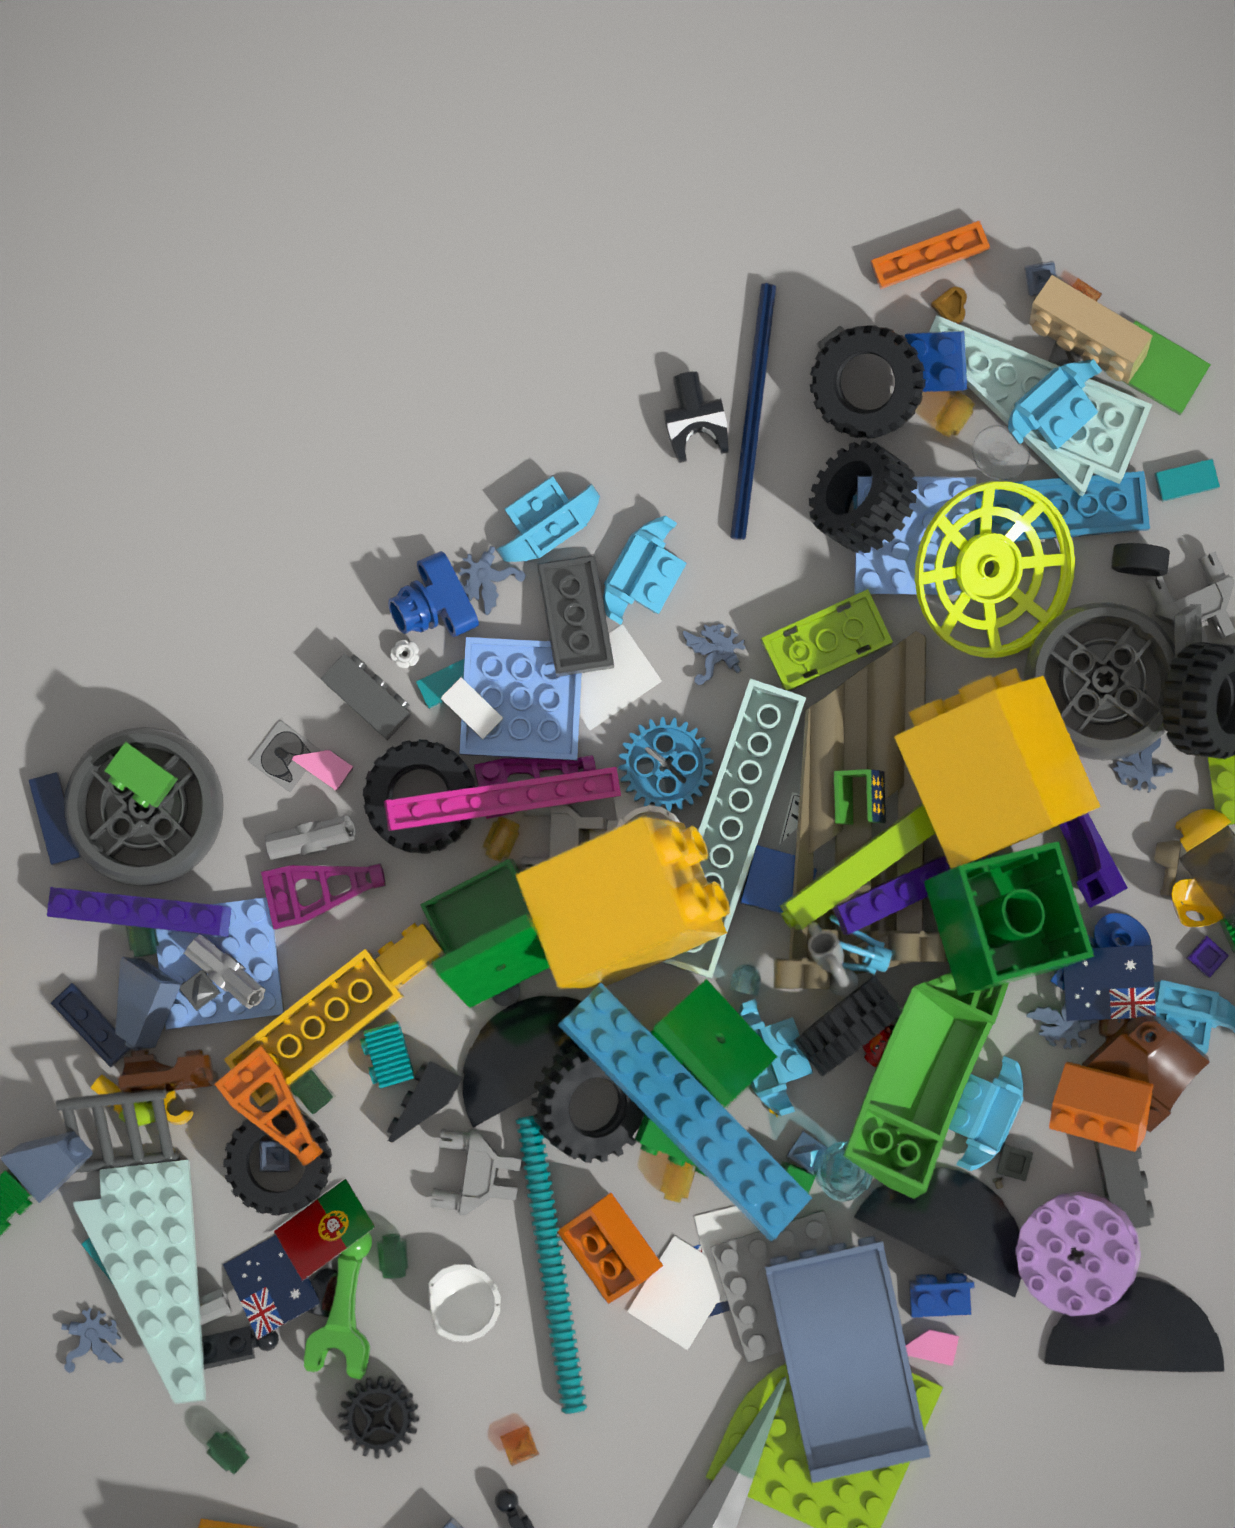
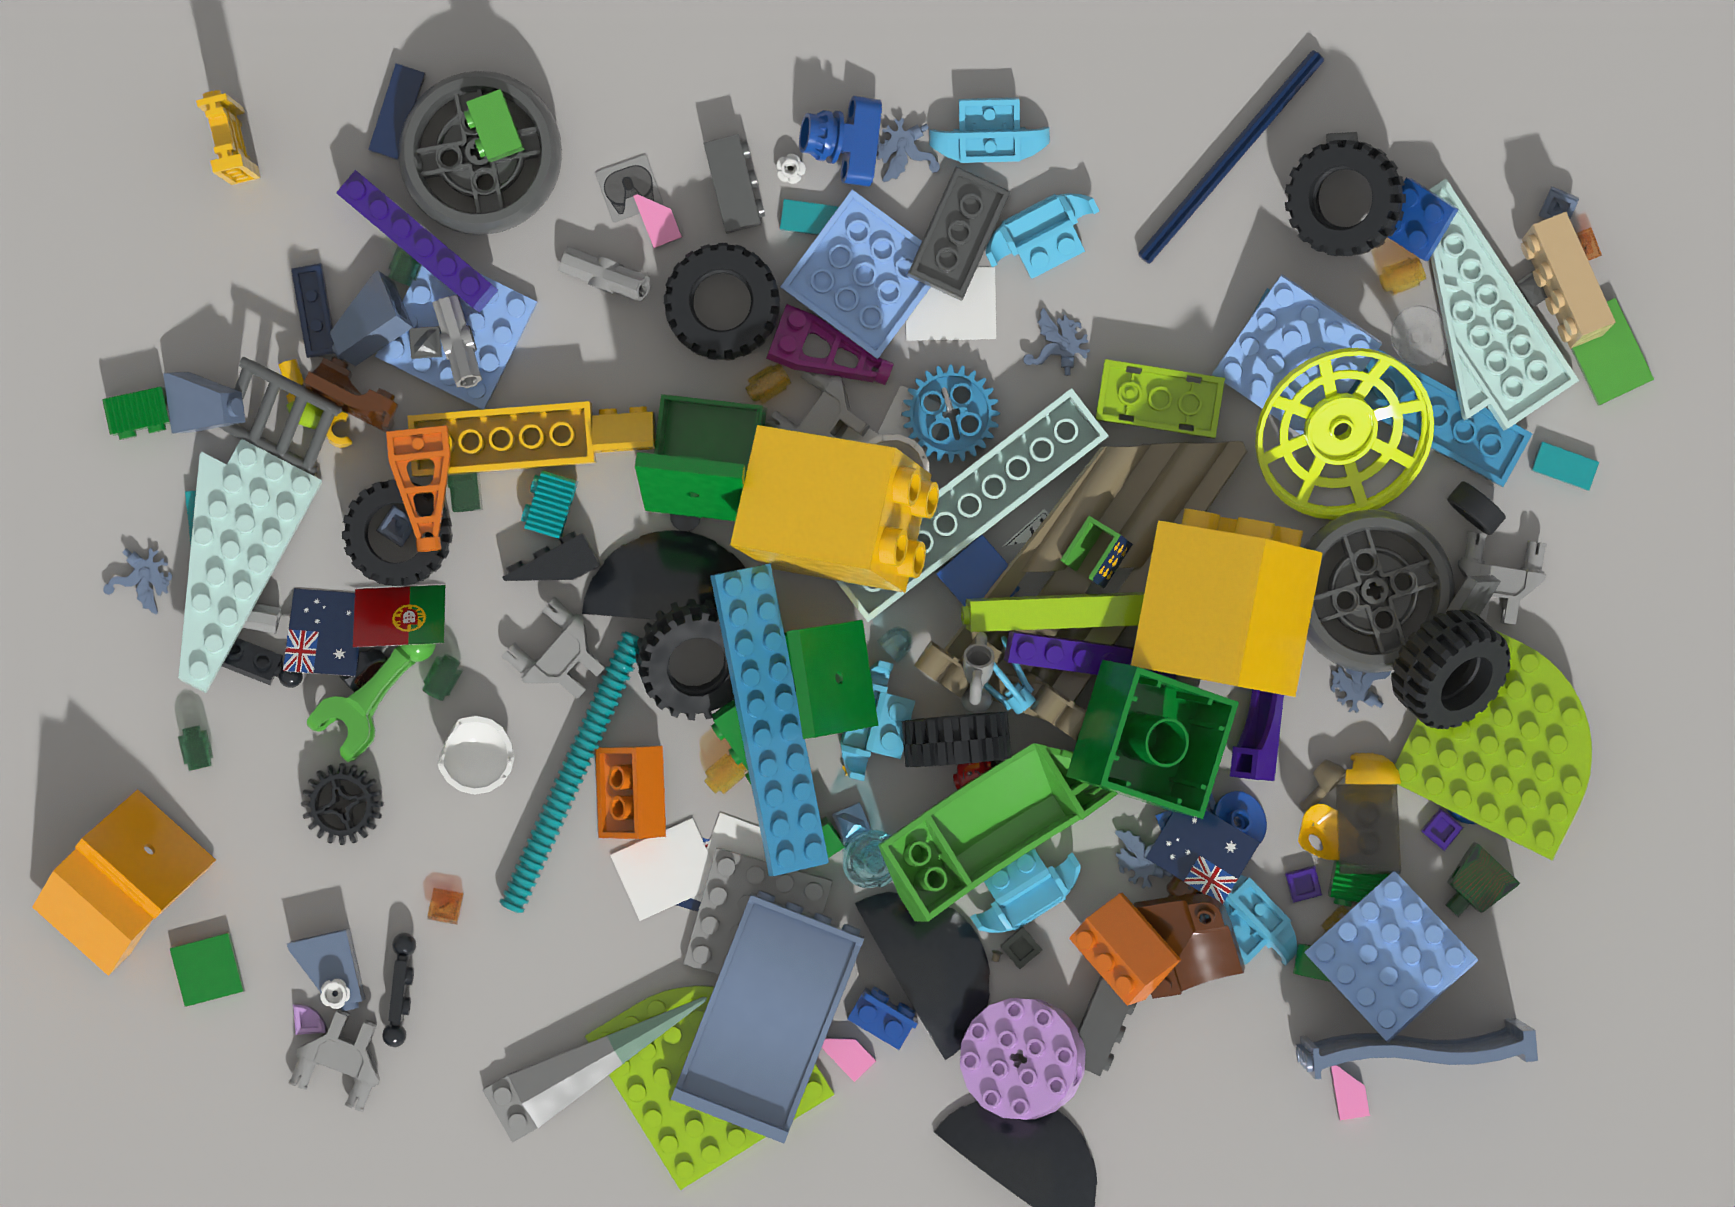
camera: 30 degrees right, 5 degrees up
(283, 897) = (548, 311): magenta plate -> none
(471, 708) = (816, 255): white tile -> none
(502, 798) = (790, 350): dark pink plate -> none
(694, 416) = (1177, 127): black connector -> none
(879, 512) = (1279, 318): black tyre -> none
(930, 254) = (1476, 121): orange plate -> none
(951, 304) = (1465, 177): pearl gold tile -> none
(1055, 404) = (1493, 326): medium azure plate -> none

